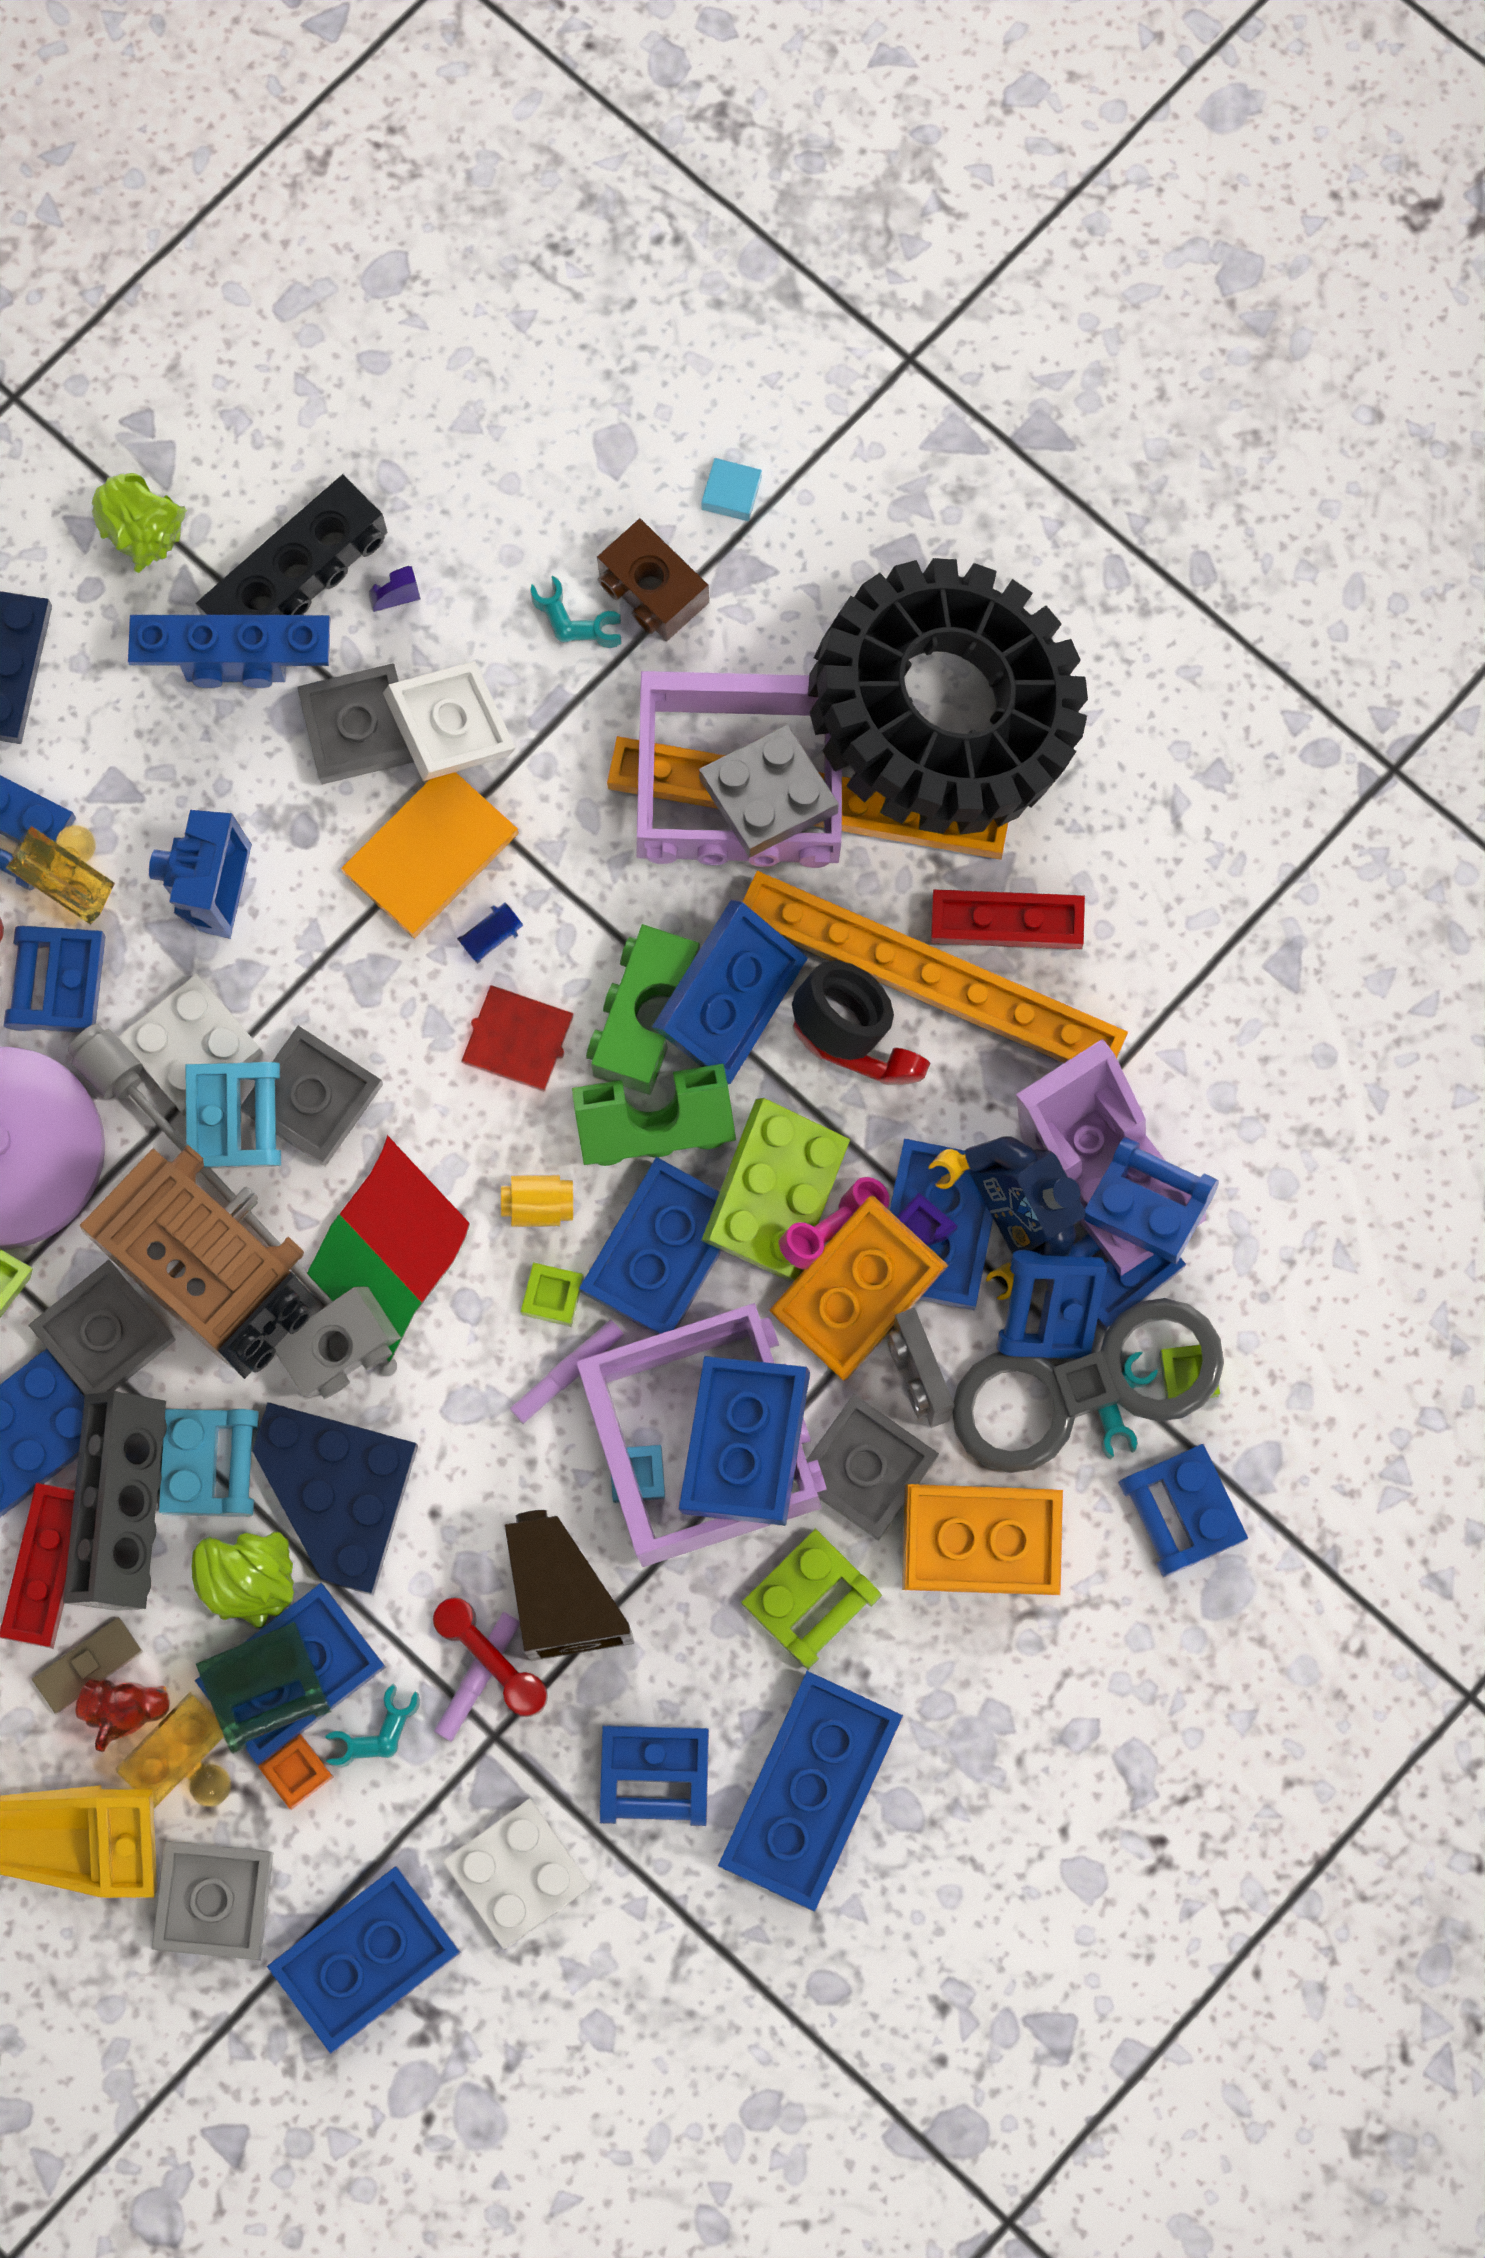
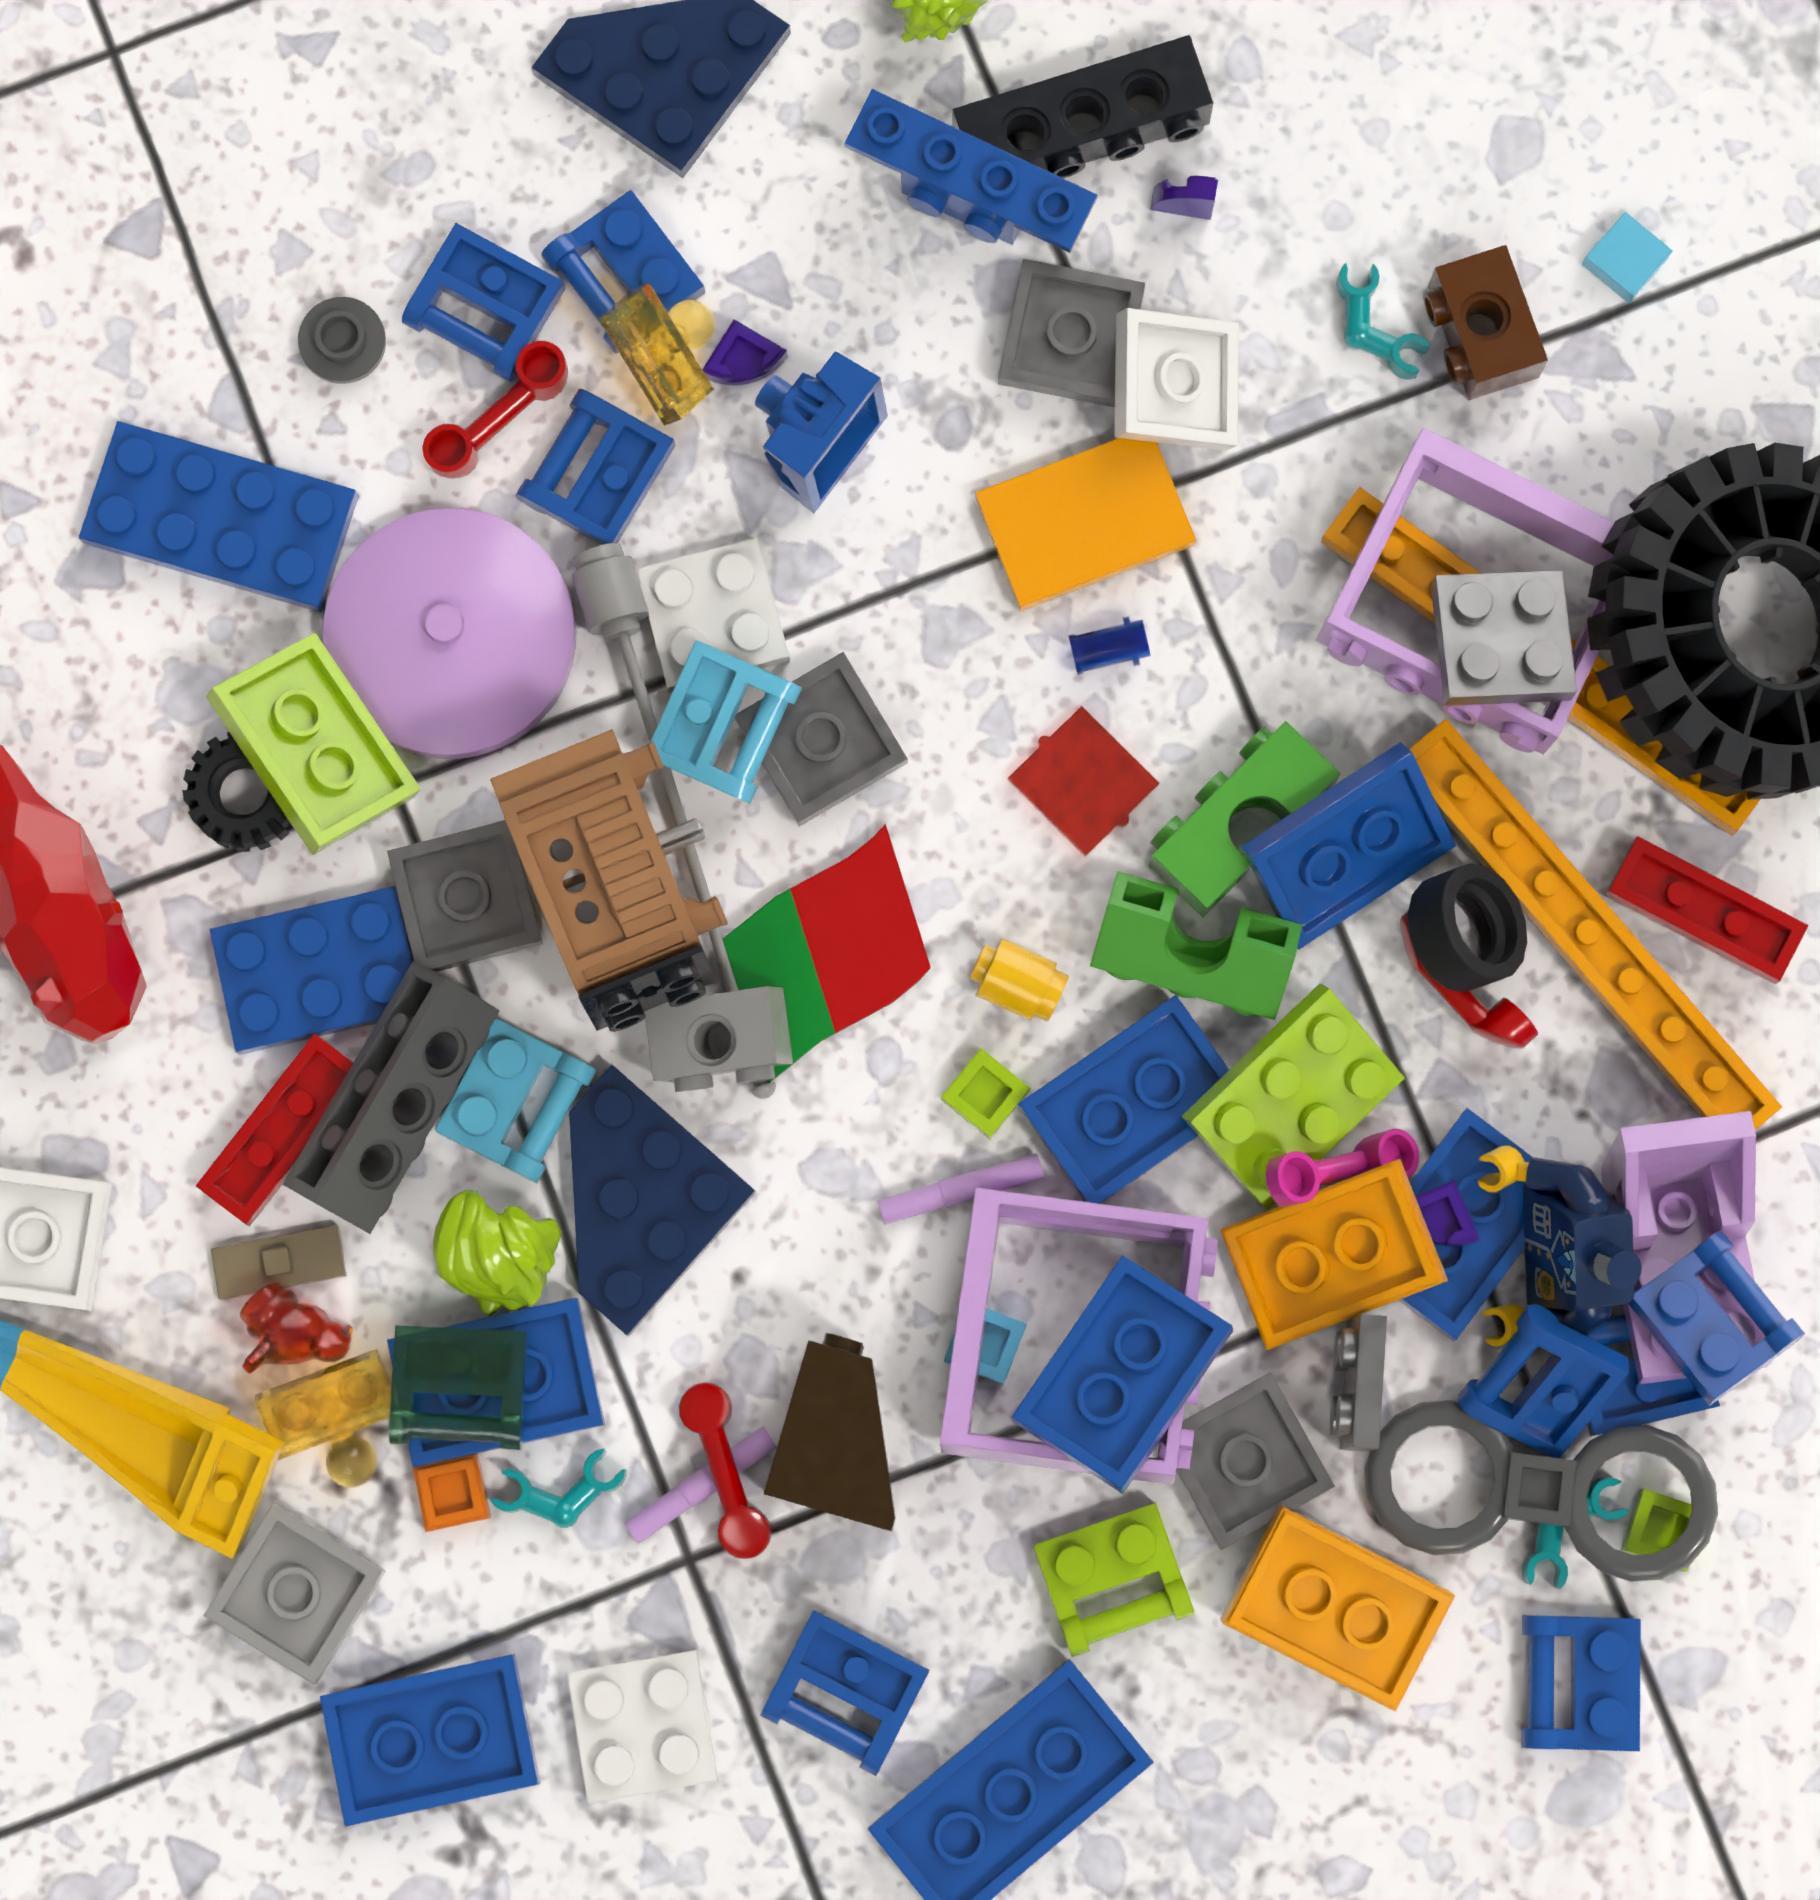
camera: 25 degrees right, 5 degrees up
(126, 850) = (743, 357): none -> dark purple tile

